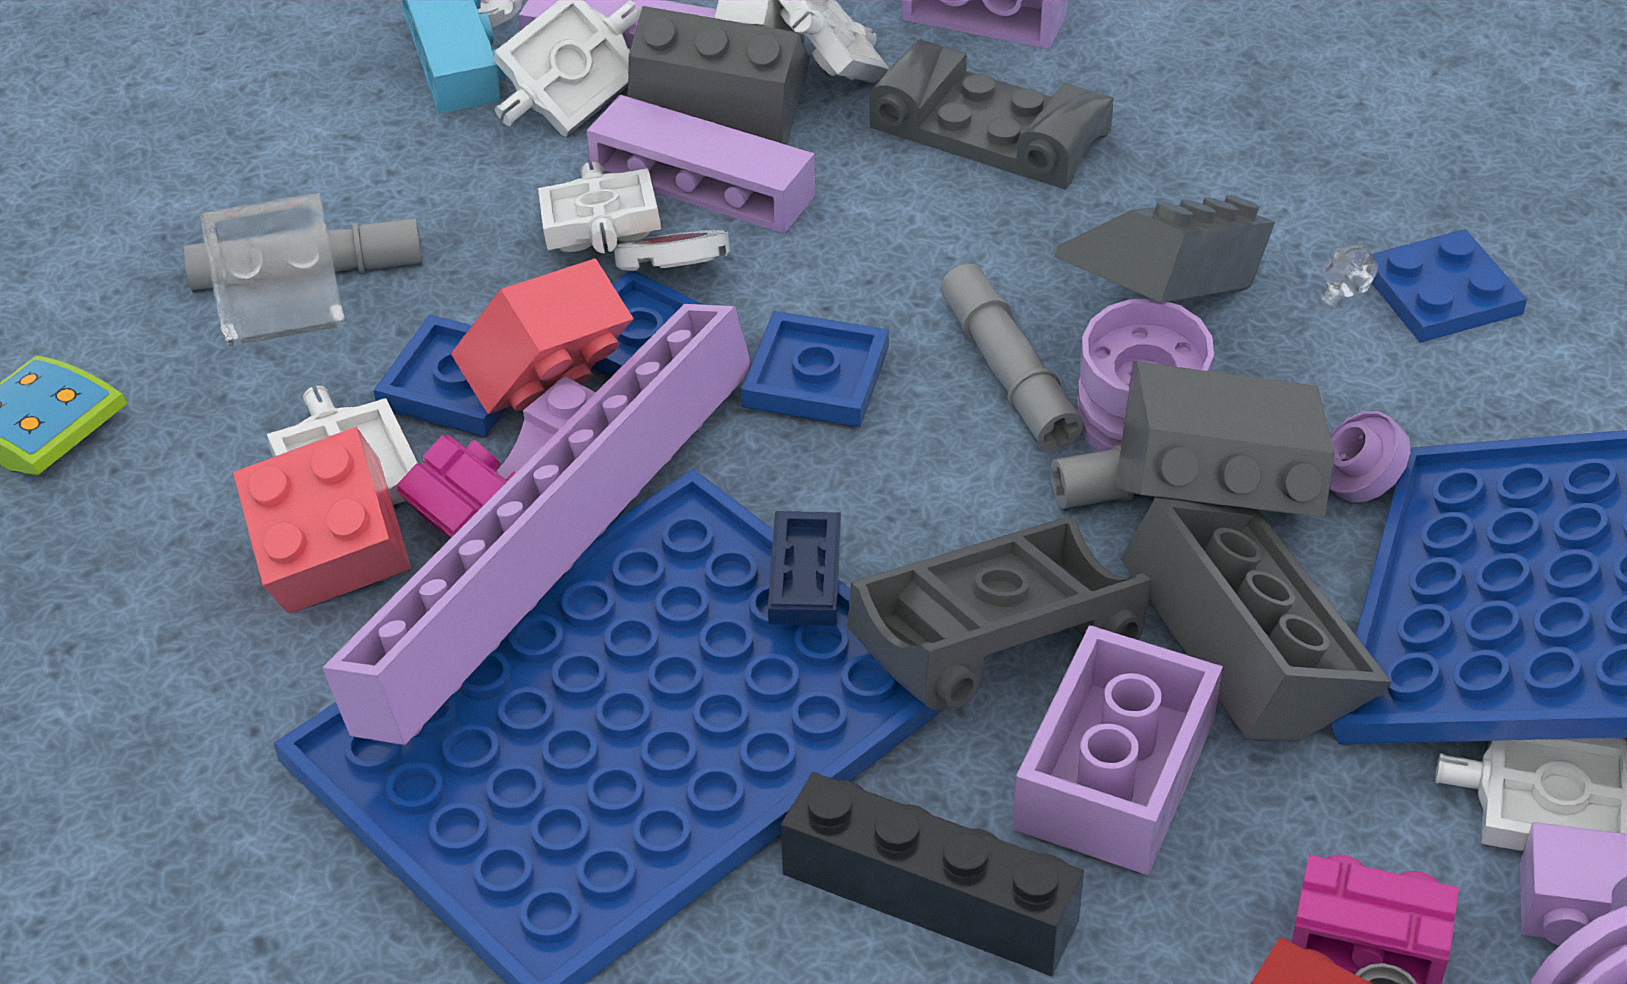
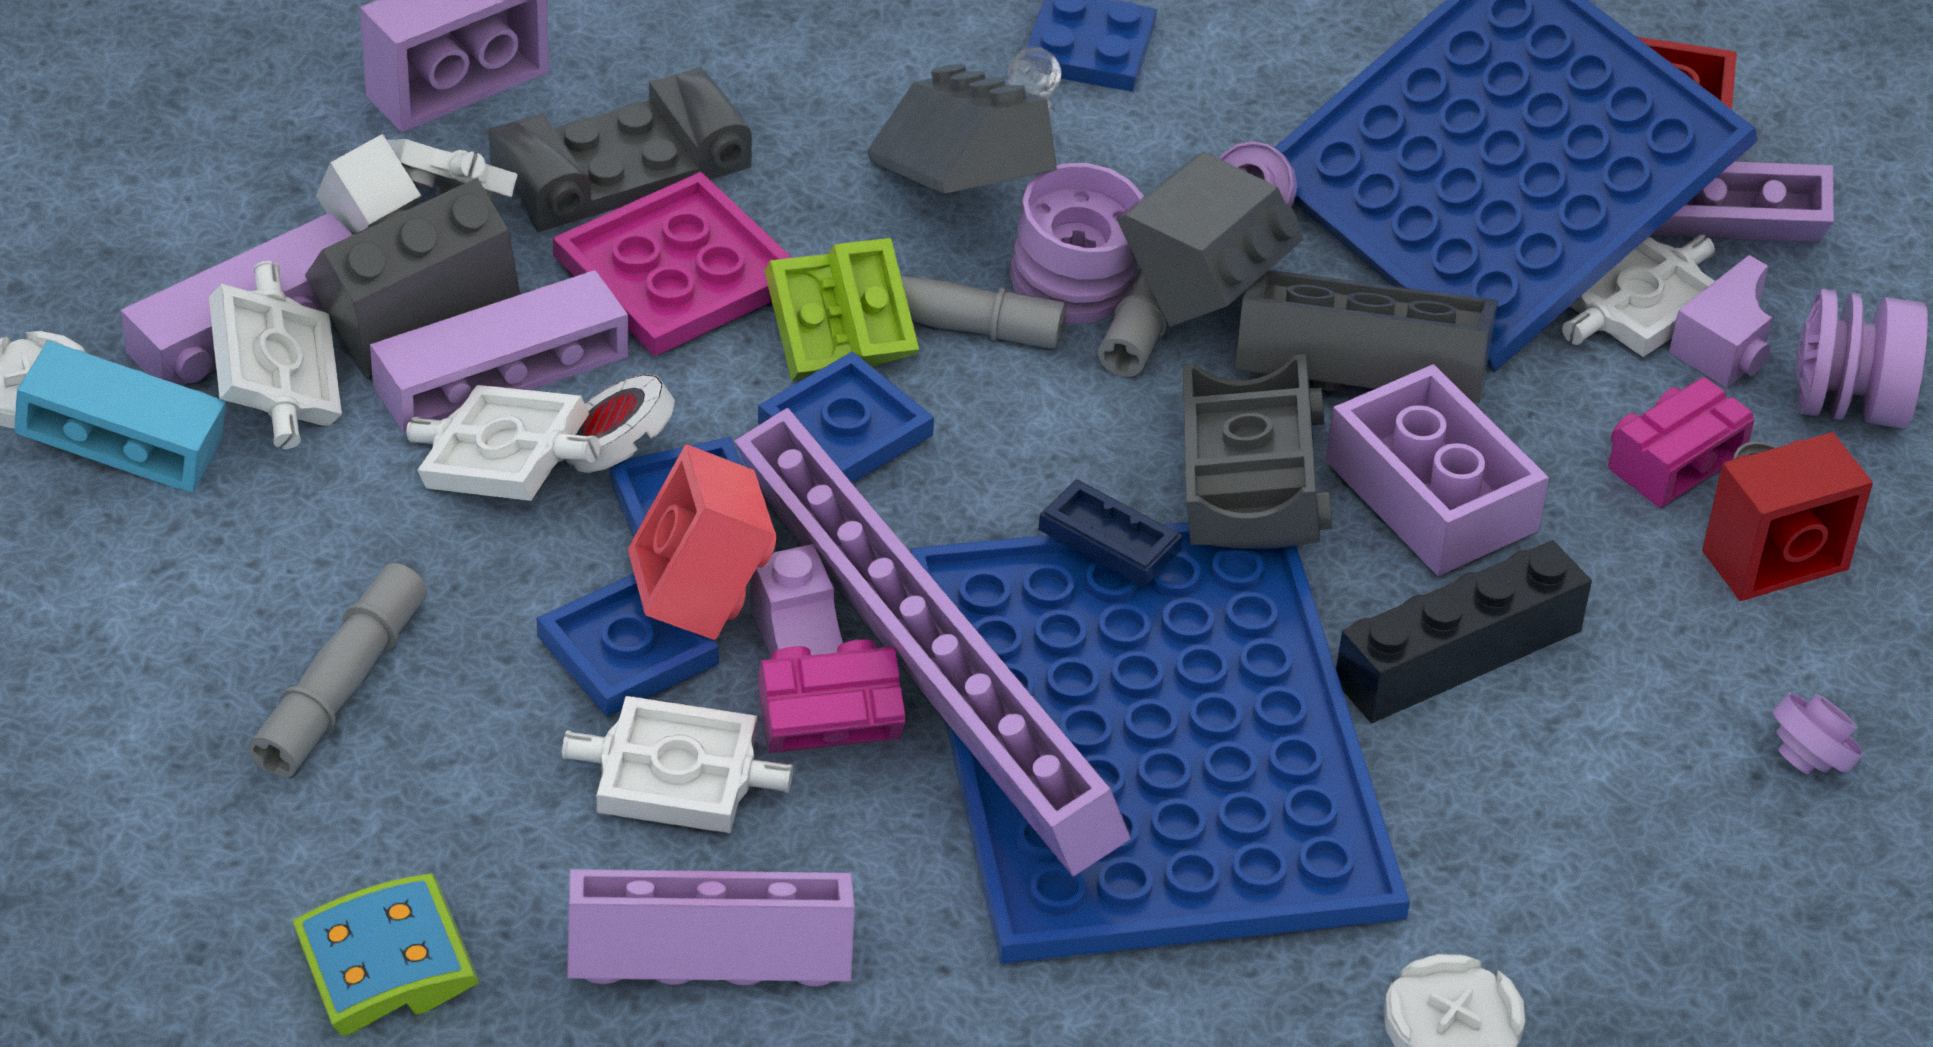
camera: 60 degrees left, 0 degrees up
(161, 559) = (710, 926): none -> lavender brick
(272, 269) = (395, 682): clear piece -> none
(321, 520) = (784, 789): coral brick -> none
(898, 201) = (675, 261): none -> dark pink plate
(926, 296) = (841, 306): none -> lime slope

